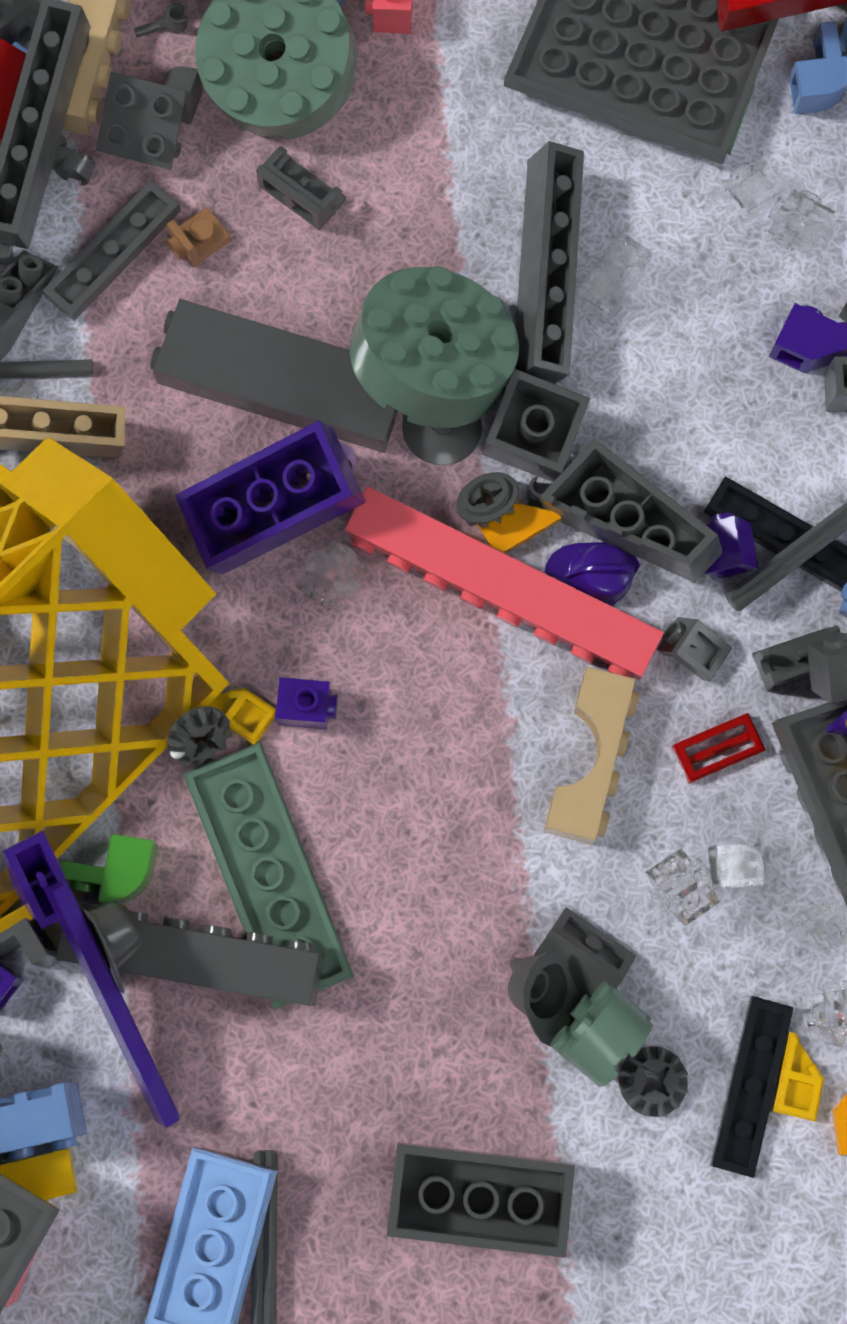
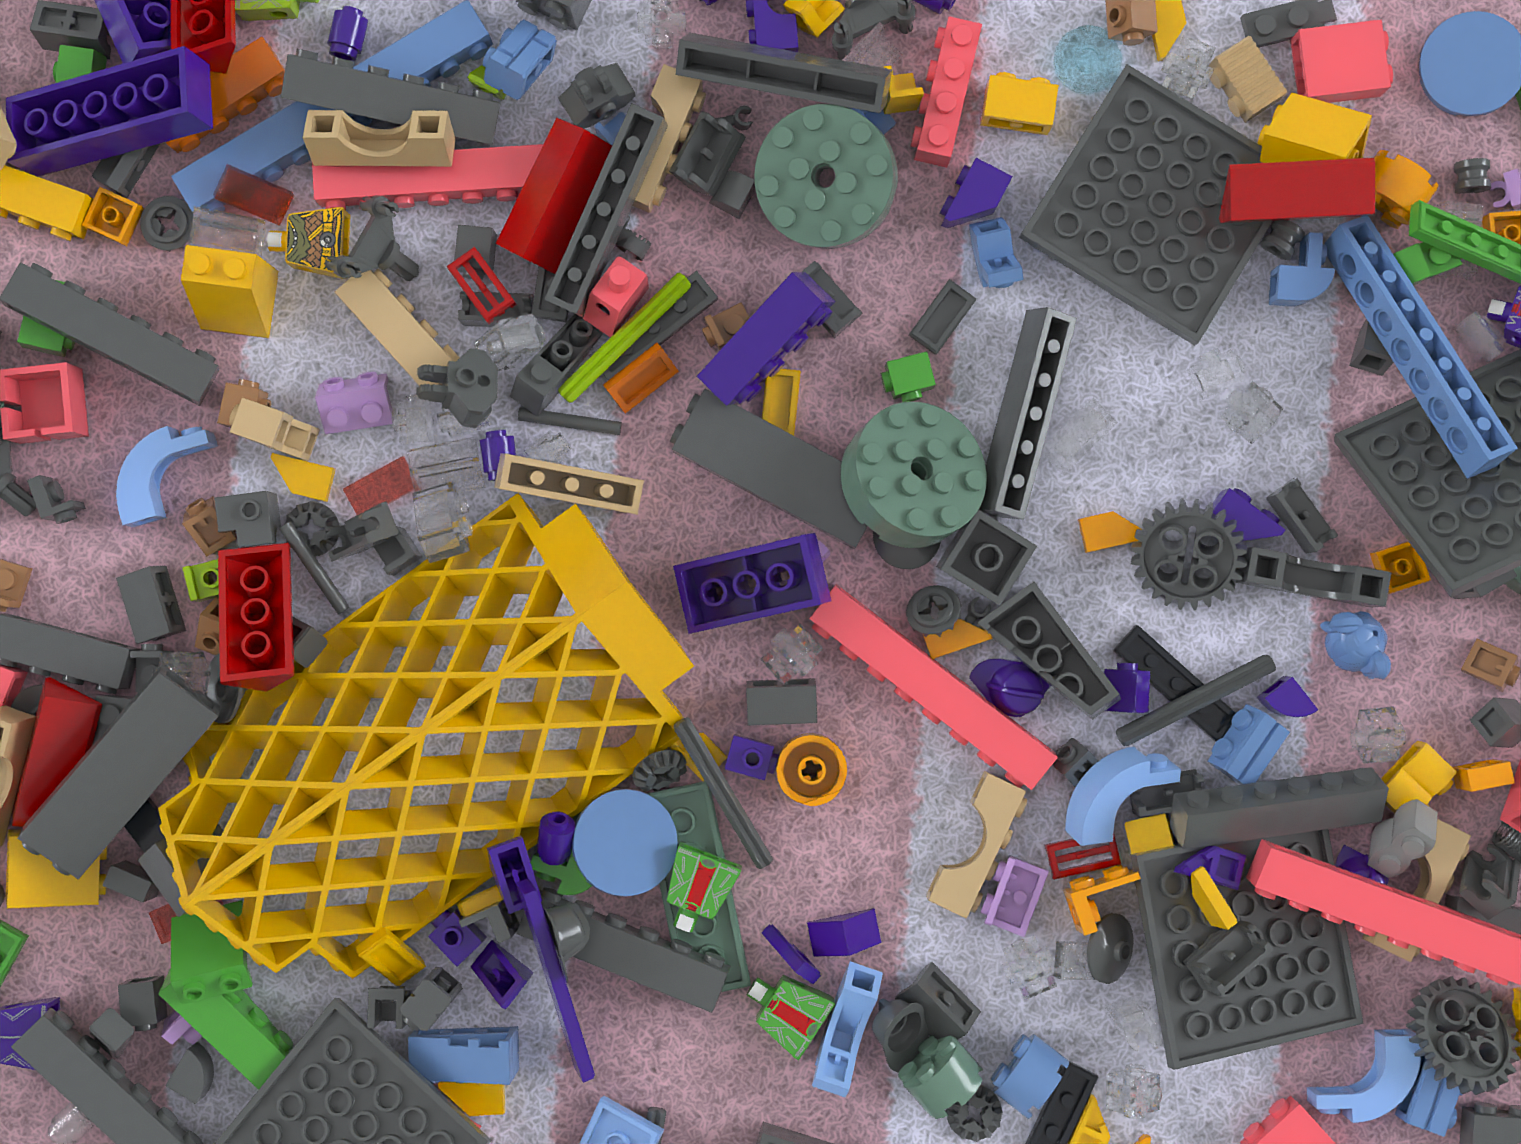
camera: 15 degrees right, 10 degrees up
(47, 1017) = (501, 973): none -> dark purple slope
(65, 206) = (619, 292): none -> coral torso
(79, 262) = (624, 337): none -> lime axle
(85, 833) = (555, 838): none -> dark purple brick
(106, 305) = (641, 378): none -> orange tile
(141, 121) = (697, 216): dark grey hinge -> none
(143, 48) = (707, 154): none -> dark grey hinge
(170, 825) = (624, 843): none -> medium blue tile
(240, 226) = (766, 338): none -> dark purple brick
(269, 860) = (699, 884): none -> bright green torso
(270, 298) = (782, 399): none -> yellow tile
(279, 748) = (723, 793): none -> dark grey axle
(330, 634) = (776, 704): none -> dark grey hinge
(388, 680) = (829, 777): none -> light orange brick
(396, 927) = (791, 954): none -> dark purple tile
(406, 996) = (791, 1012): none -> bright green torso
(409, 247) = (908, 377): none -> bright green brick
(436, 186) = (942, 317): none -> dark grey tile
(449, 51) = (978, 195): none -> dark purple slope
(454, 892) = (844, 933): none -> dark purple slope
(477, 999) = (845, 1028): none -> light blue arch
(480, 107) = (994, 253): none -> medium blue brick
(647, 808) = (1015, 895): none -> lavender bracket
(670, 381) = (1106, 531): none -> light orange tile
(709, 1014) = (1030, 1074): none -> medium blue brick
(725, 659) = (1107, 785): none -> light blue arch
(727, 795) = (1082, 909): none -> light orange bracket
(773, 847) = (1110, 948): none -> dark grey dish
(788, 699) = (1149, 833): none -> yellow panel
(793, 39) = (1282, 239): none -> dark grey wheel
(802, 379) = (1220, 559): none -> dark grey gear

